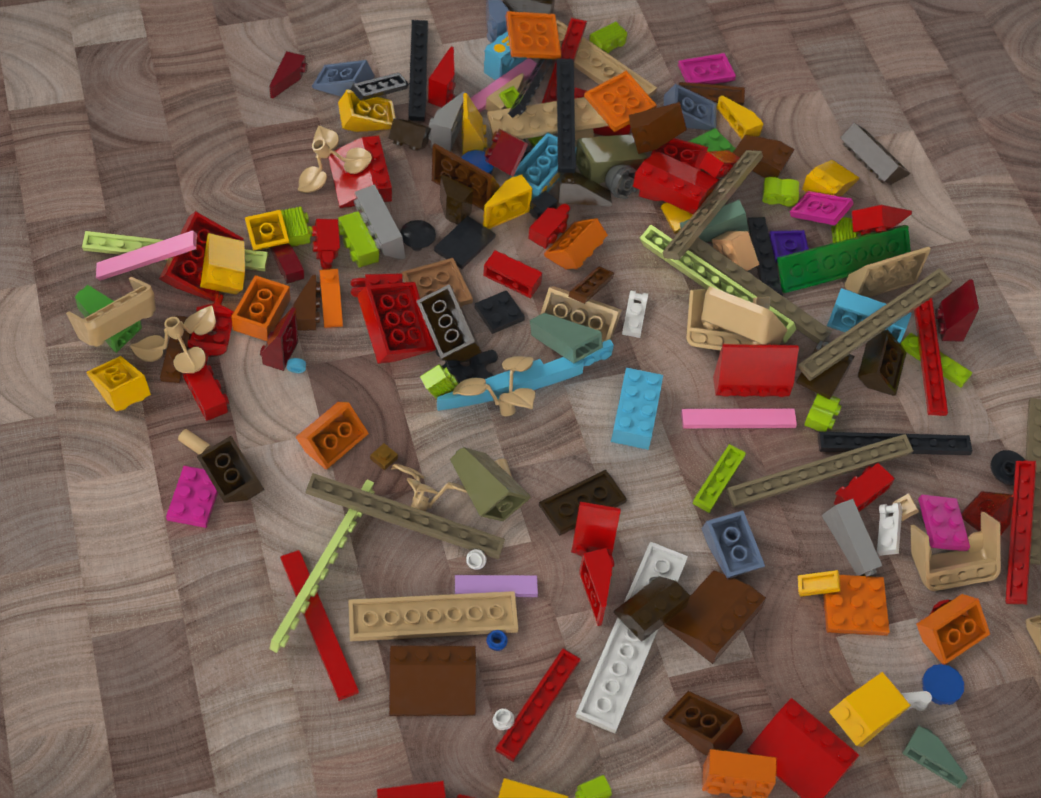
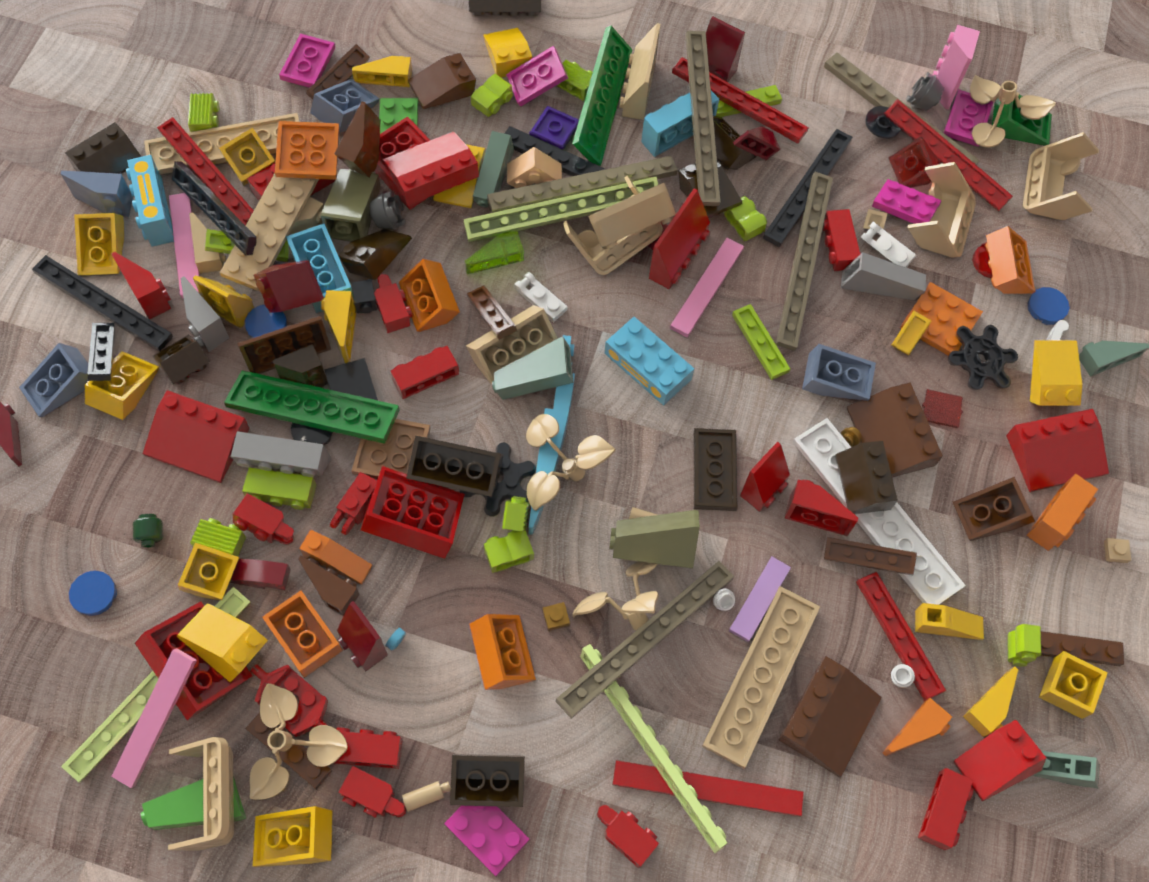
camera: 55 degrees left, 10 degrees up
(176, 410) = (371, 793): none -> red hinge
(211, 183) = (92, 593): none -> blue tile
(246, 585) = (627, 835): none -> red hinge
(274, 185) = (147, 530): none -> dark green head
(323, 145) = (128, 449): tan plant -> none
(411, 398) = (508, 550): none -> lime brick
(432, 223) = (312, 406): none -> green plate
(465, 37) = (95, 241): none -> yellow slope
(468, 752) = (923, 725): none -> orange slope
(497, 634) = (817, 625): blue plate -> none
(499, 311) = (457, 411): black plate -> none
(533, 35) = (161, 172): orange plate -> none
(565, 116) = (286, 206): black plate -> none
(573, 731) = (948, 622): none -> yellow slope
(587, 644) = (870, 556): none -> reddish brown plate
(592, 72) = (246, 155): none -> yellow brick
(646, 265) = (500, 251): none -> clear neon green slope
(686, 582) = (851, 435): none -> pearl gold plate
(712, 205) = (487, 162): dark tan plate -> none
(718, 162) = (435, 118): red brick -> none
(770, 644) = (942, 408): none -> clear red piece
(854, 644) = (992, 352): none -> black plate
(877, 218) = (587, 43): red slope -> none
(899, 382) = (759, 142): none -> dark red slope

